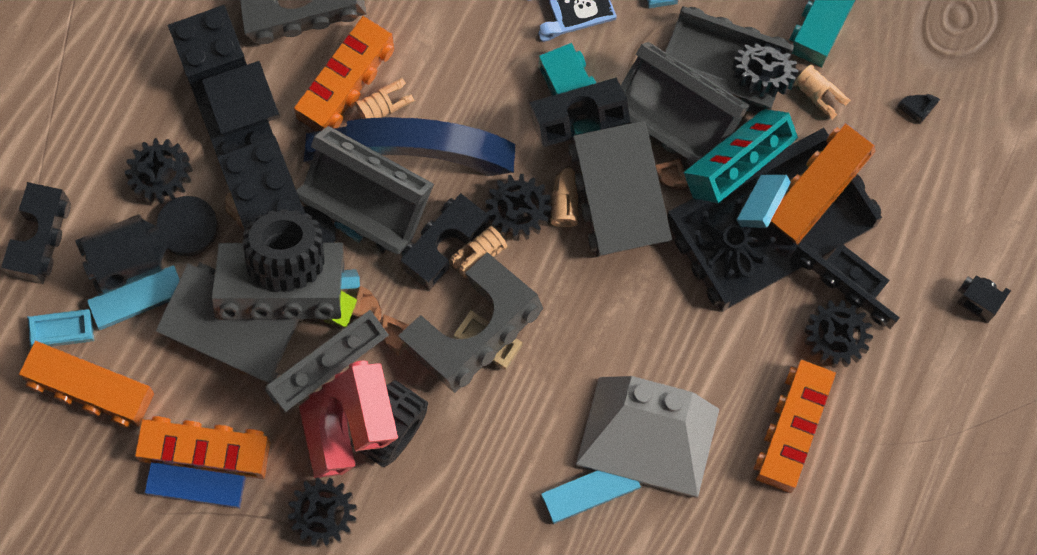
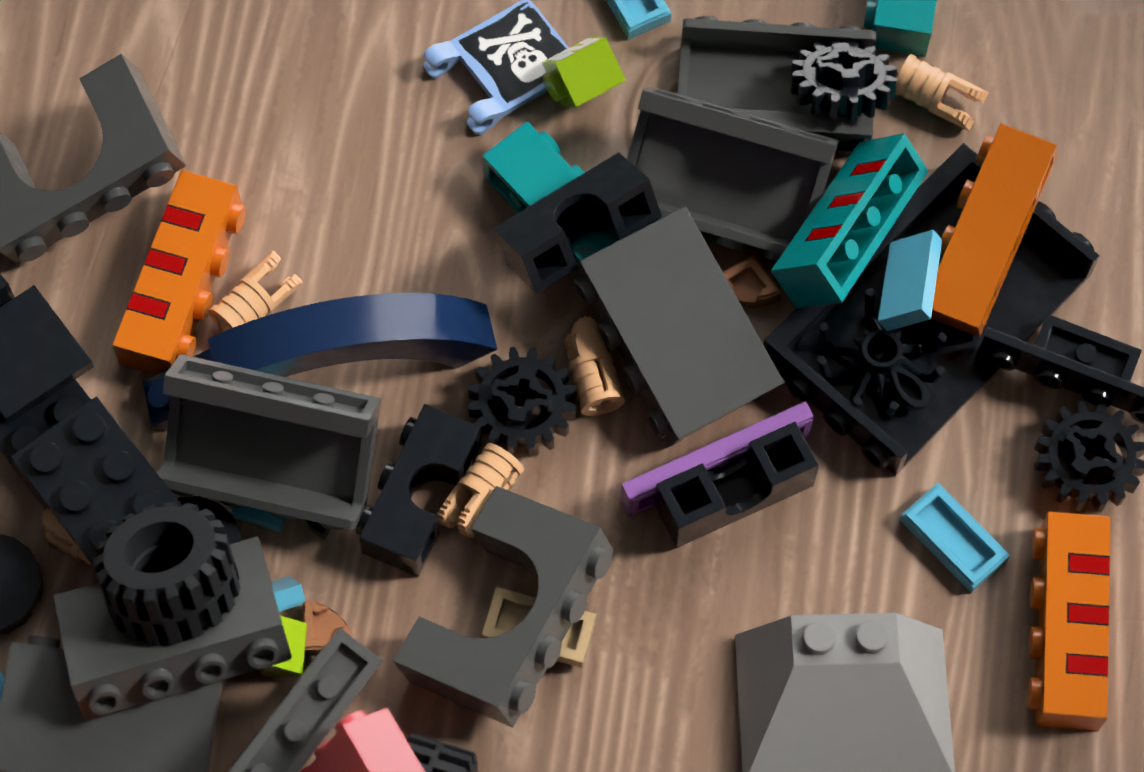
camera: 15 degrees left, 5 degrees down
(393, 328) = (387, 675): nougat tile -> none
(613, 21) = (582, 72): none -> lime brick
(620, 272) = (639, 492): none -> medium lavender tile
(644, 290) = (765, 474): none -> black arch
(744, 358) = (954, 537): none -> medium azure tile
(918, 106) = (1093, 73): black tile -> none

